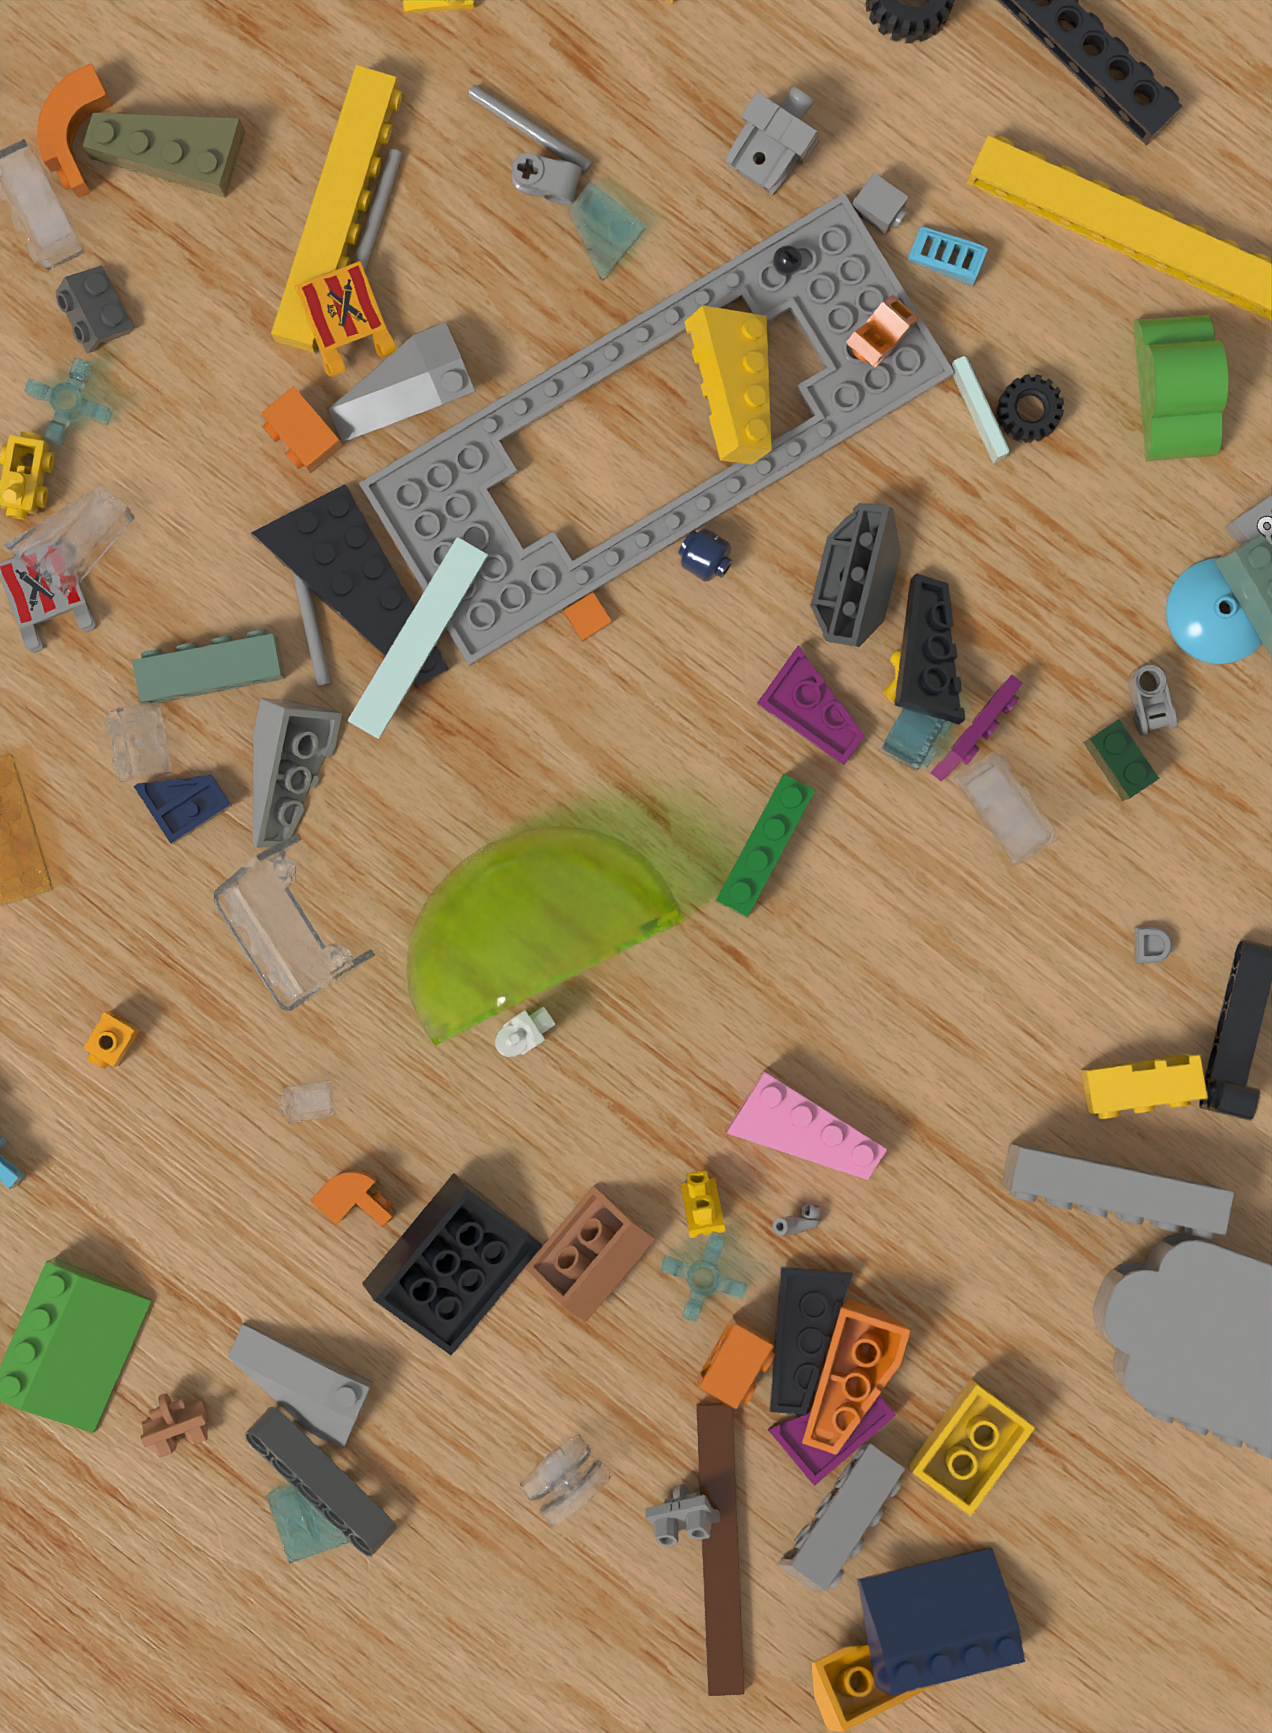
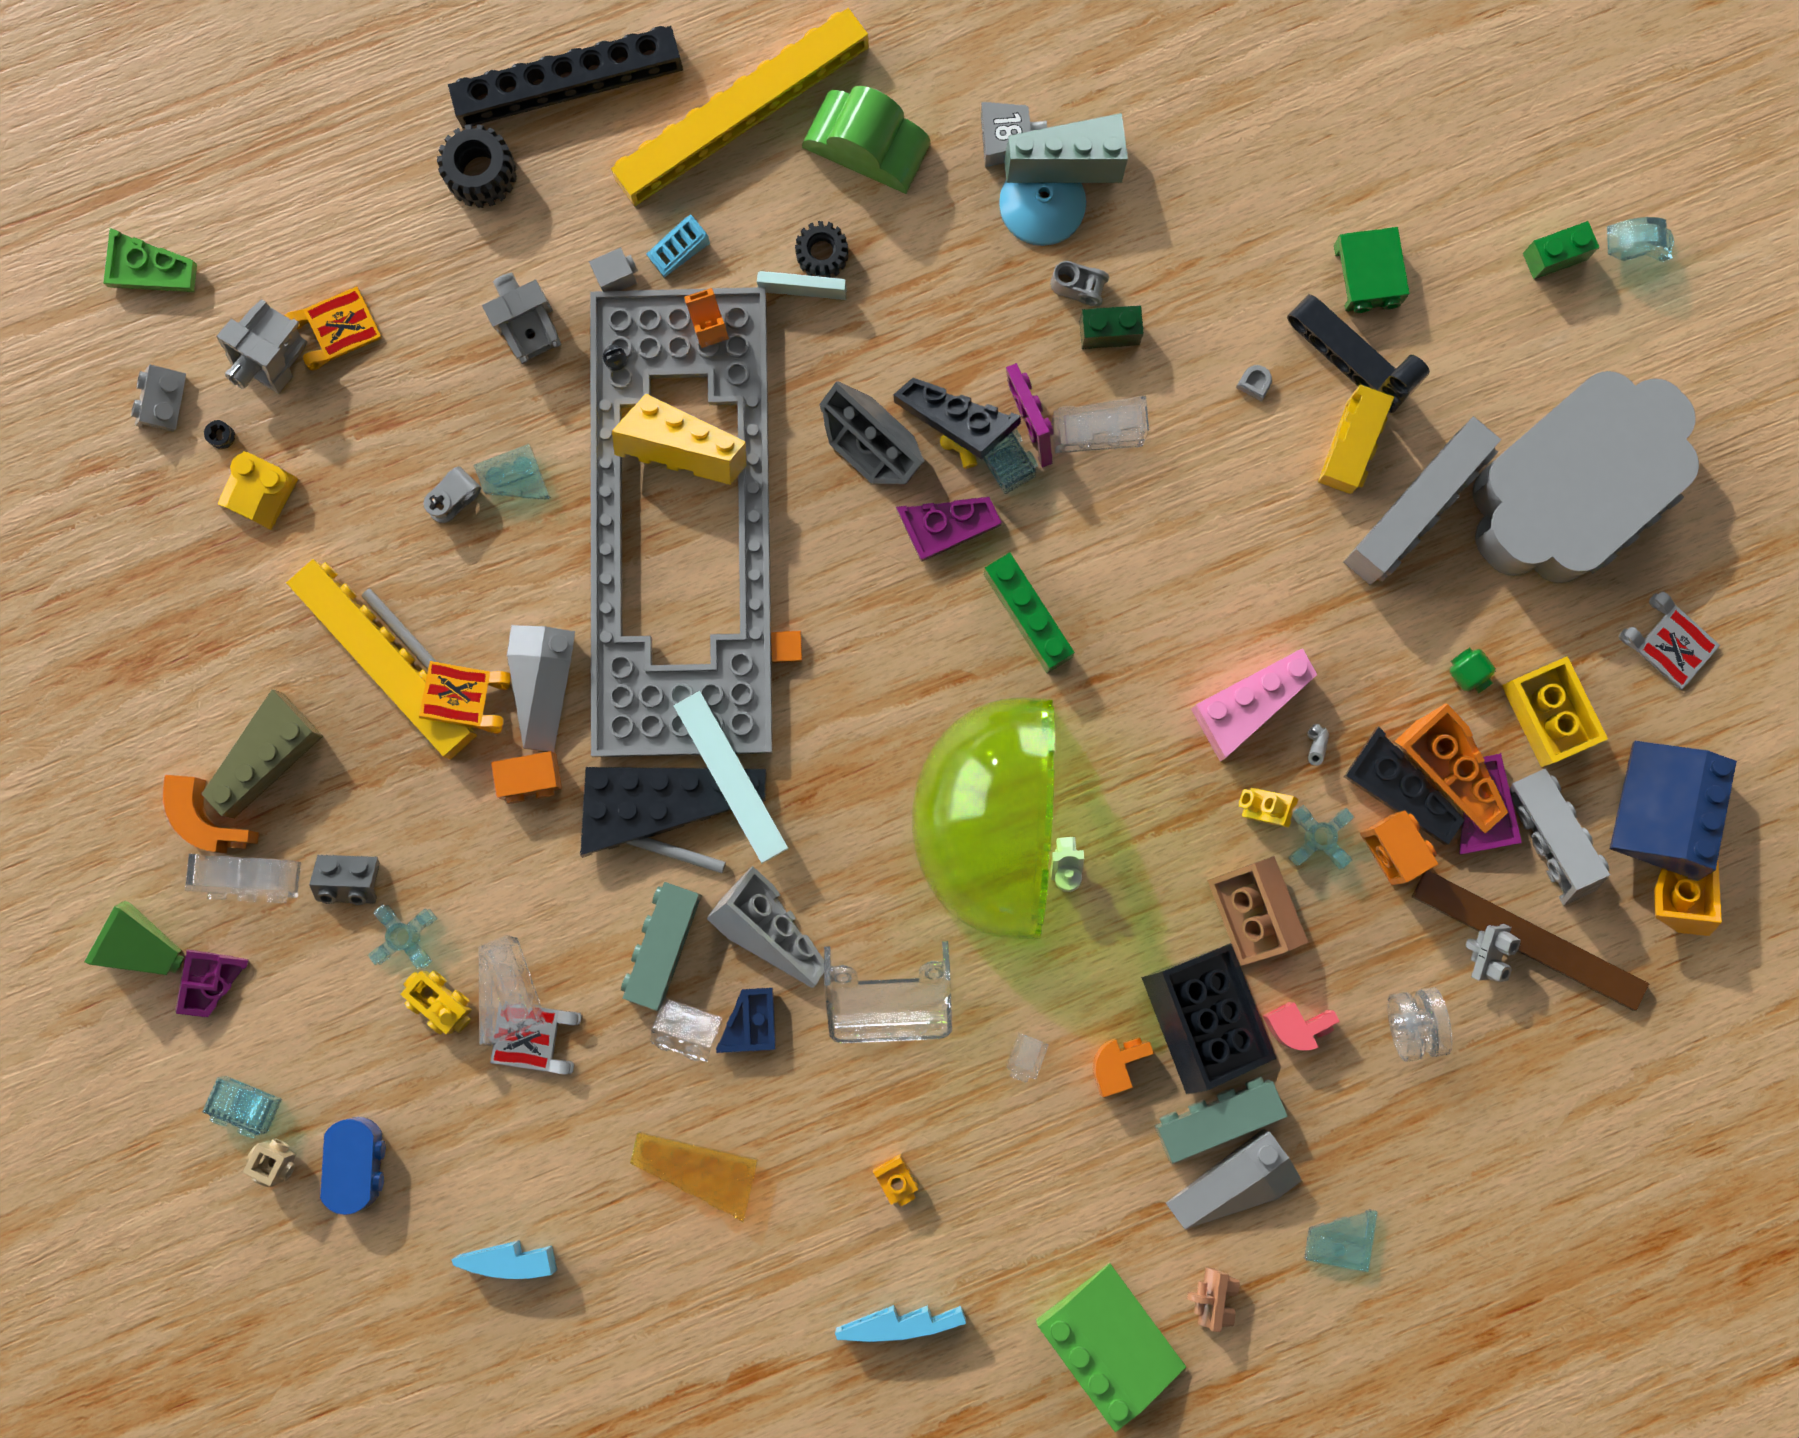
camera: 50 degrees left, 5 degrees down
(320, 1481) = (1319, 1211): dark grey beam -> none
(355, 1332) = (1220, 1120): none -> sand green brick
(487, 1357) = (1291, 1029): none -> coral brick
(529, 128) = (407, 488): light grey bar -> none
(705, 555) = (792, 535): dark blue head -> none
(968, 1339) = (1472, 670): none -> green head
(1119, 1537) = (1674, 645): none -> light grey flag

